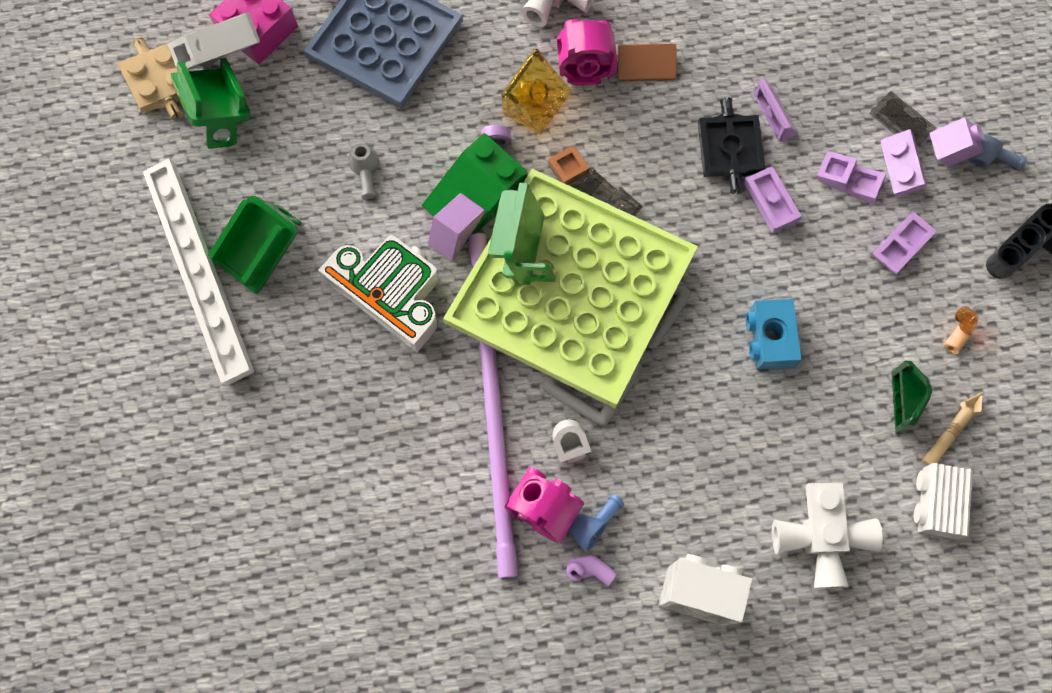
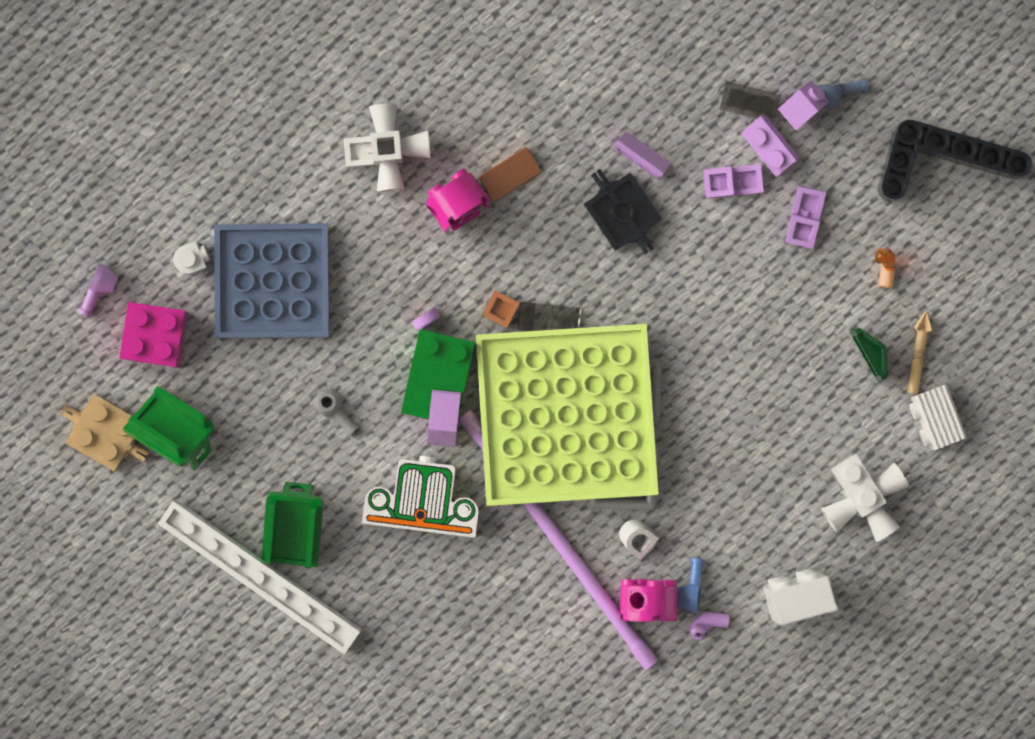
camera: 35 degrees left, 15 degrees up
(214, 42) = (143, 384): white slope -> none
(518, 236) = (507, 411): green piece -> none
(534, 93) = (437, 261): clear yellow slope -> none
(772, 199) = (681, 241): lavender plate -> none
(780, 318) = (759, 368): dark azure brick -> none

